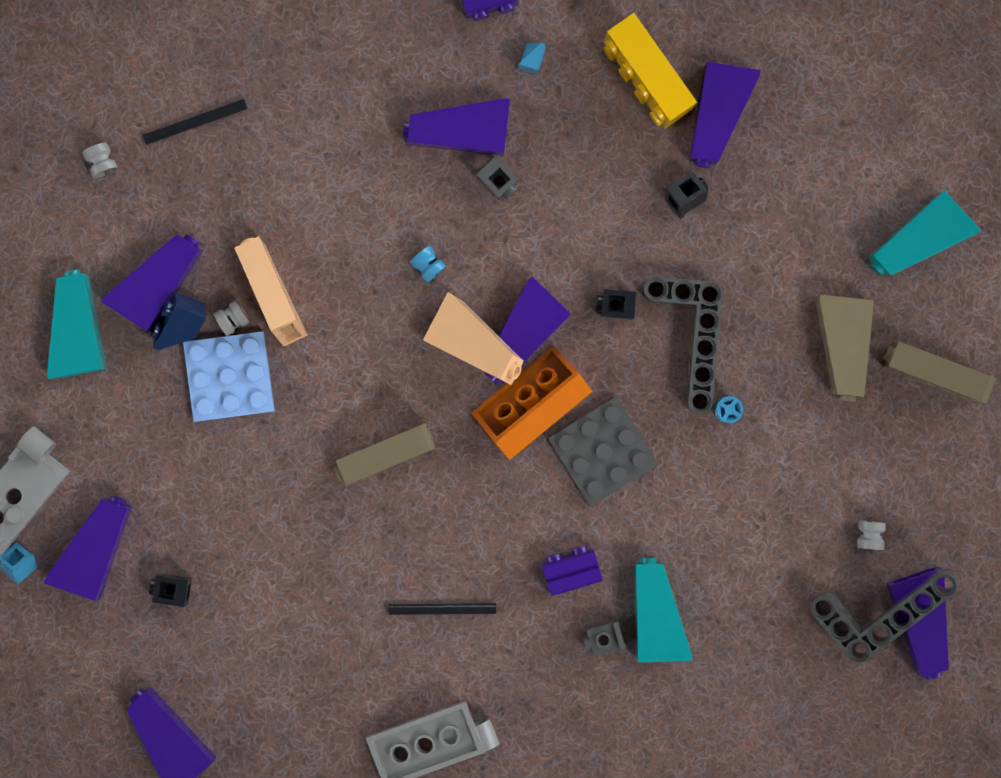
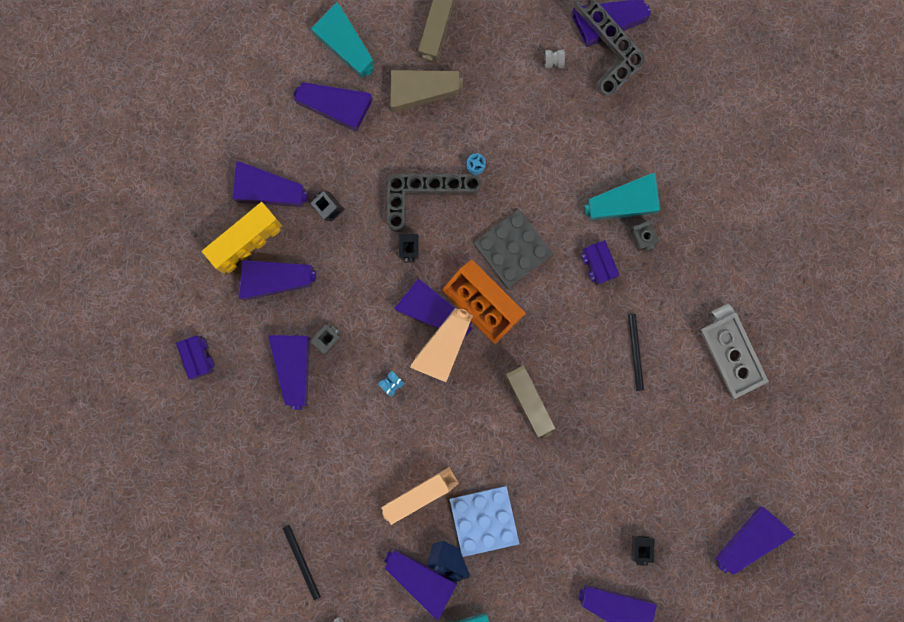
camera: 90 degrees left, 5 degrees down
(236, 313) = (438, 519): light grey wheel -> none
(532, 57) = (238, 322): dark azure slope -> none
(590, 106) = (271, 278): none -> dark purple slope
(832, 218) = (334, 103): none -> dark purple slope

